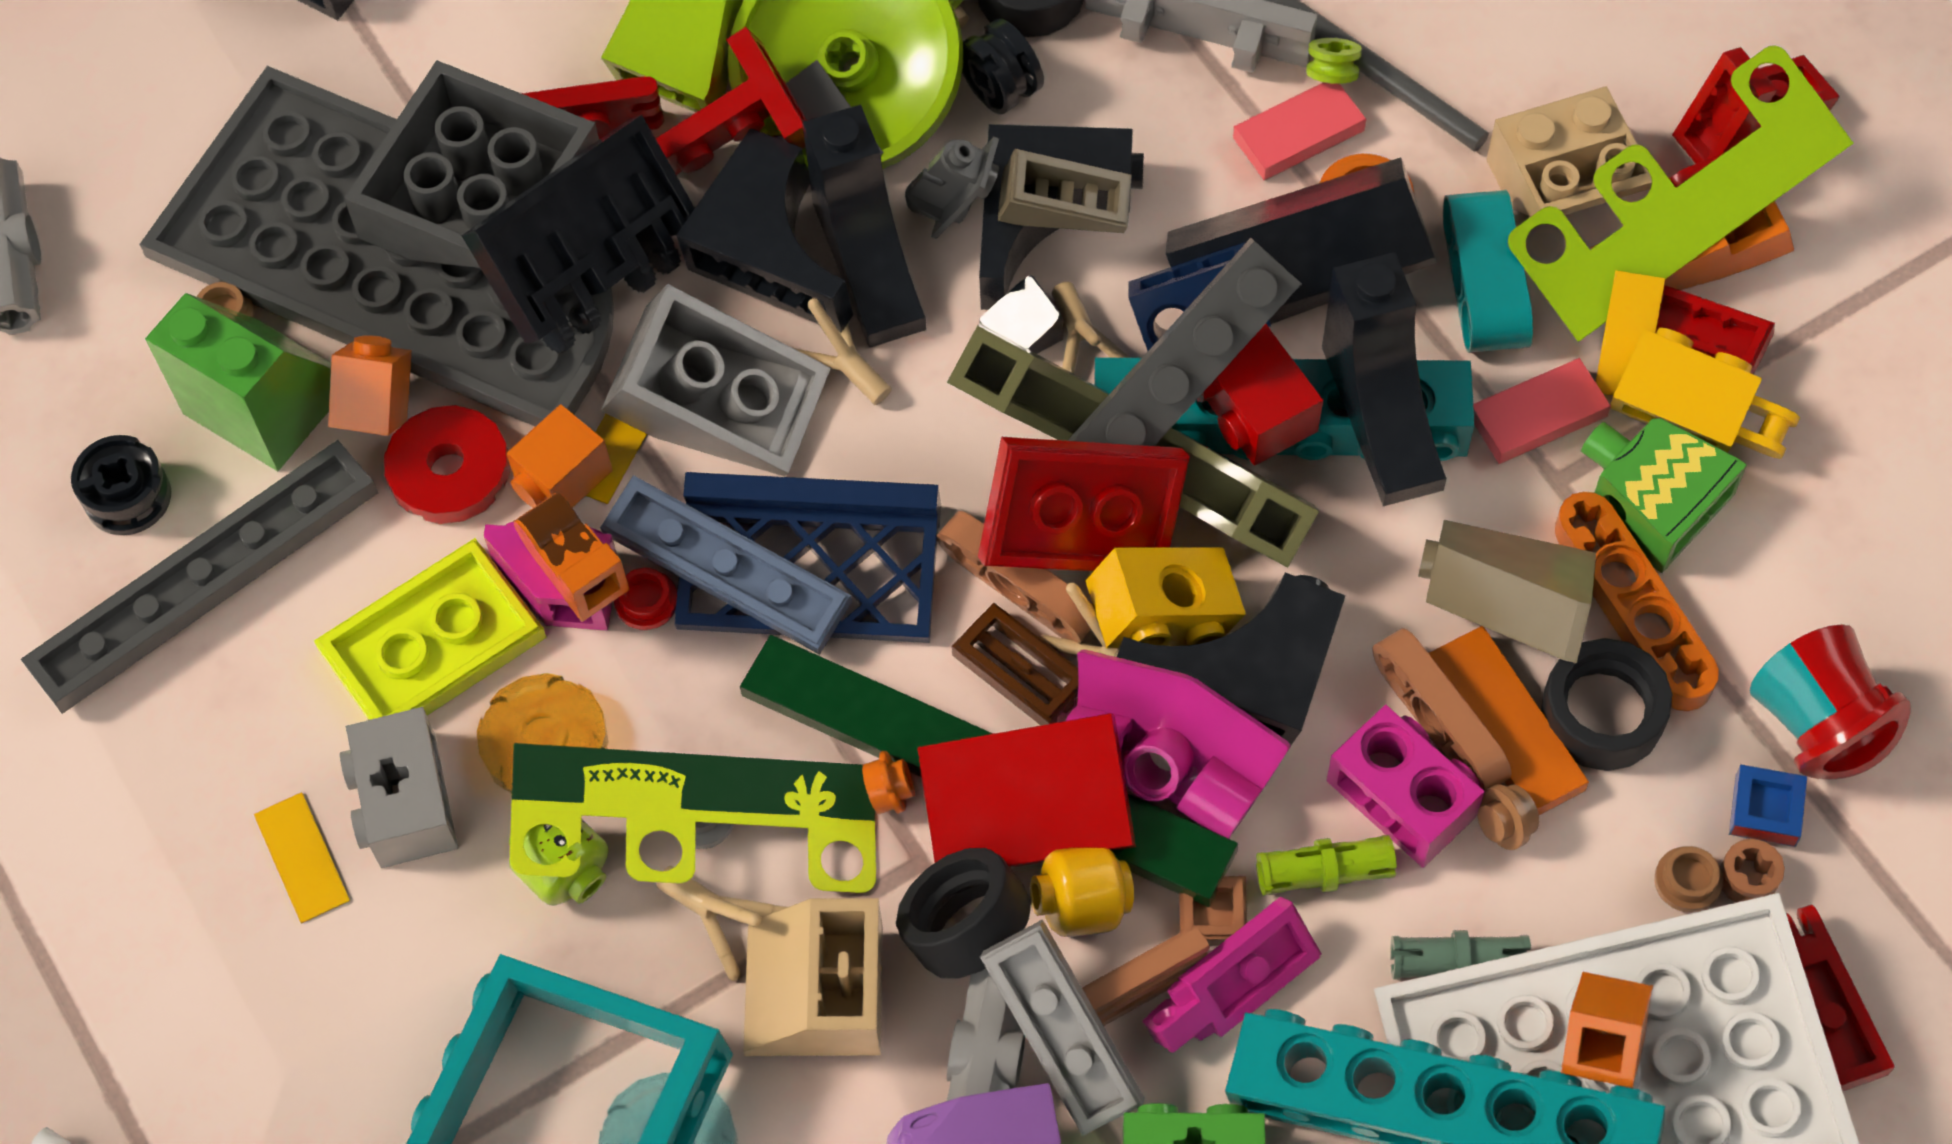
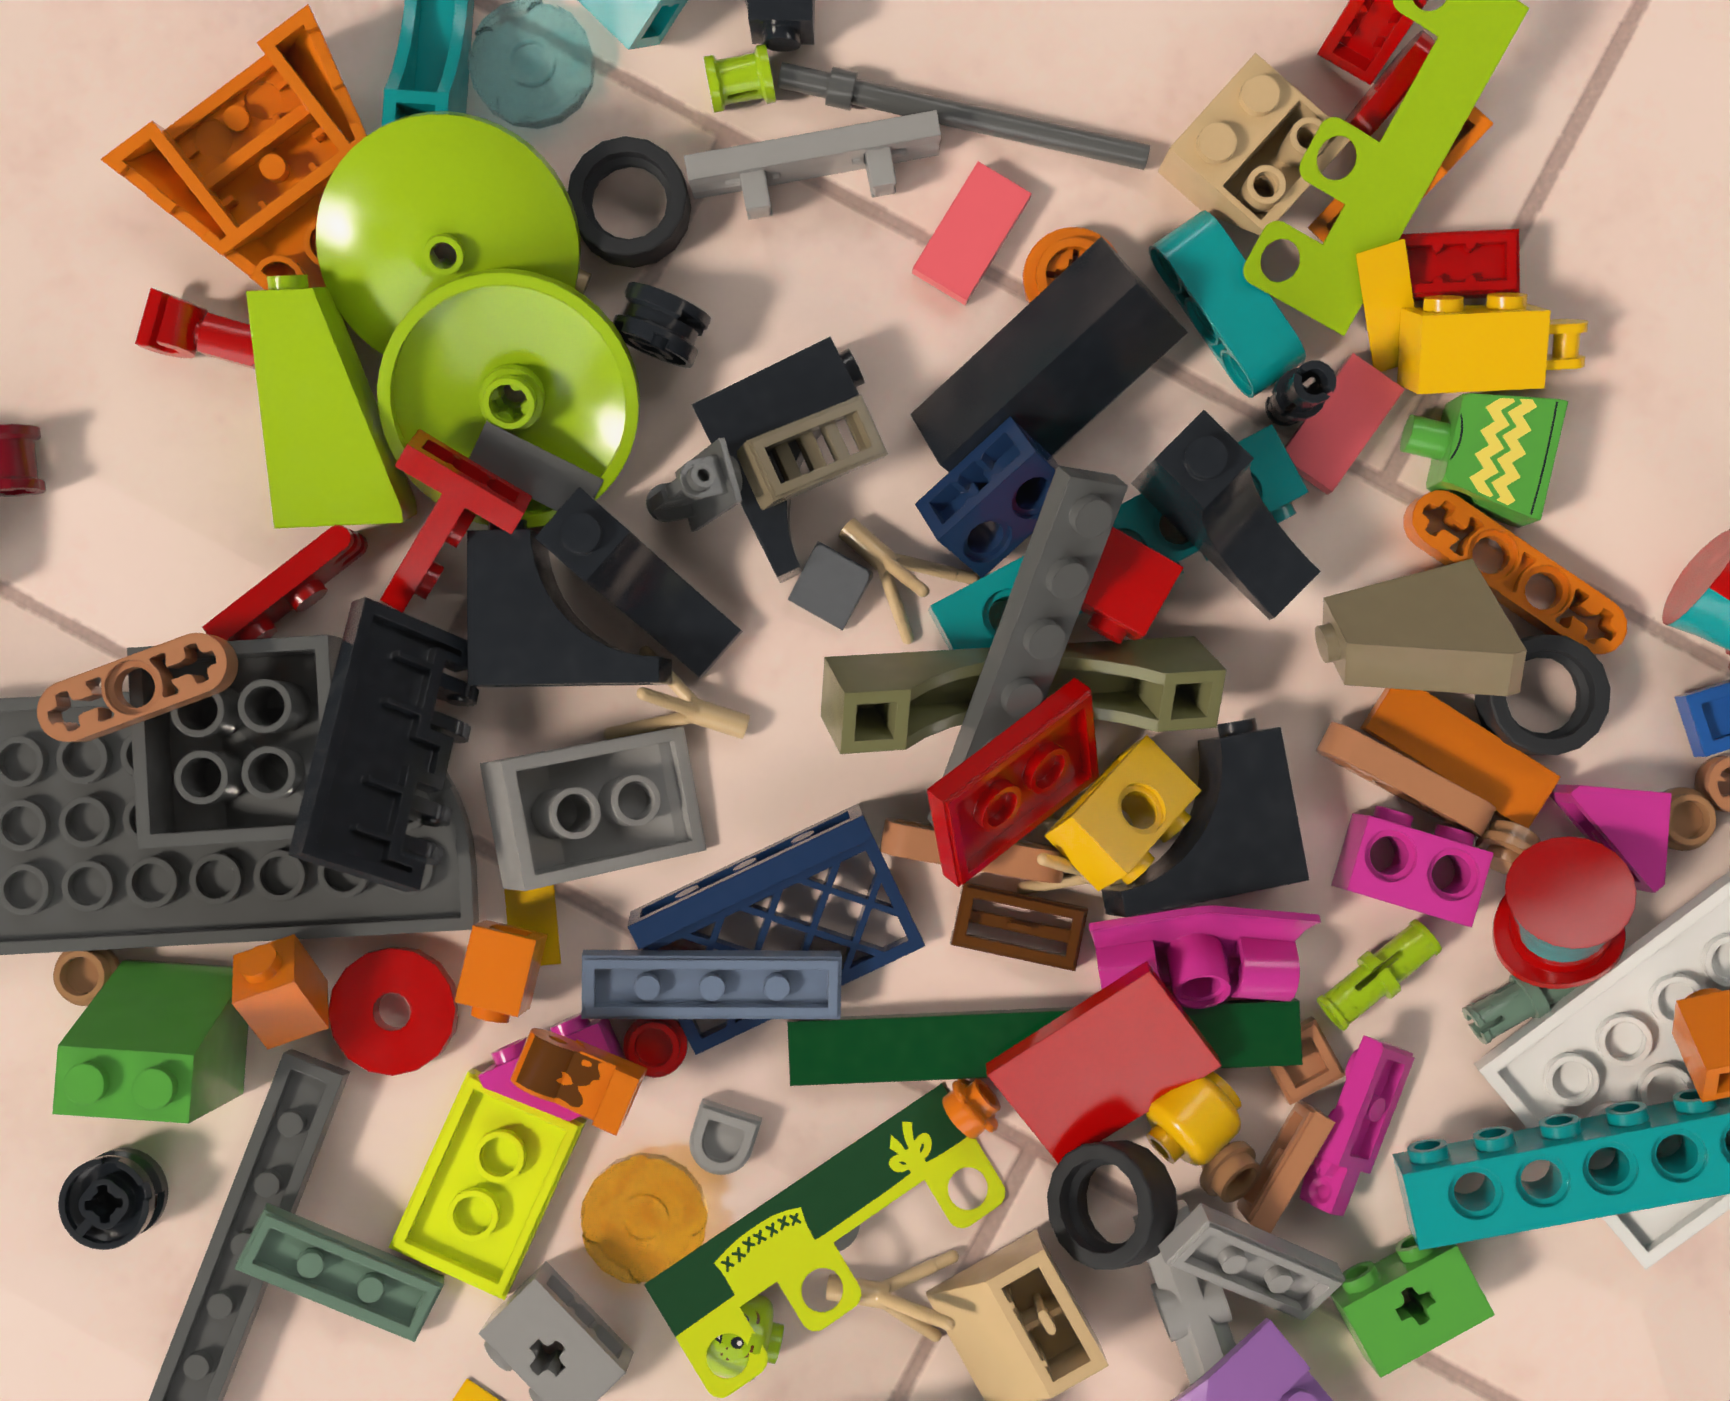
camera: 30 degrees left, 25 degrees up
(262, 634) = (340, 1272): none -> sand green tile
(406, 66) = (99, 721): none -> nougat beam
(654, 706) = (722, 1137): none -> light grey tile
(1091, 952) = (1231, 1172): none -> medium nougat plate
(1333, 60) = (971, 146): lime bush -> none
(1507, 347) = (1307, 399): none -> black pin
(1522, 872) = (1564, 913): none -> red hat
(1622, 842) = (1626, 822): none -> dark pink slope

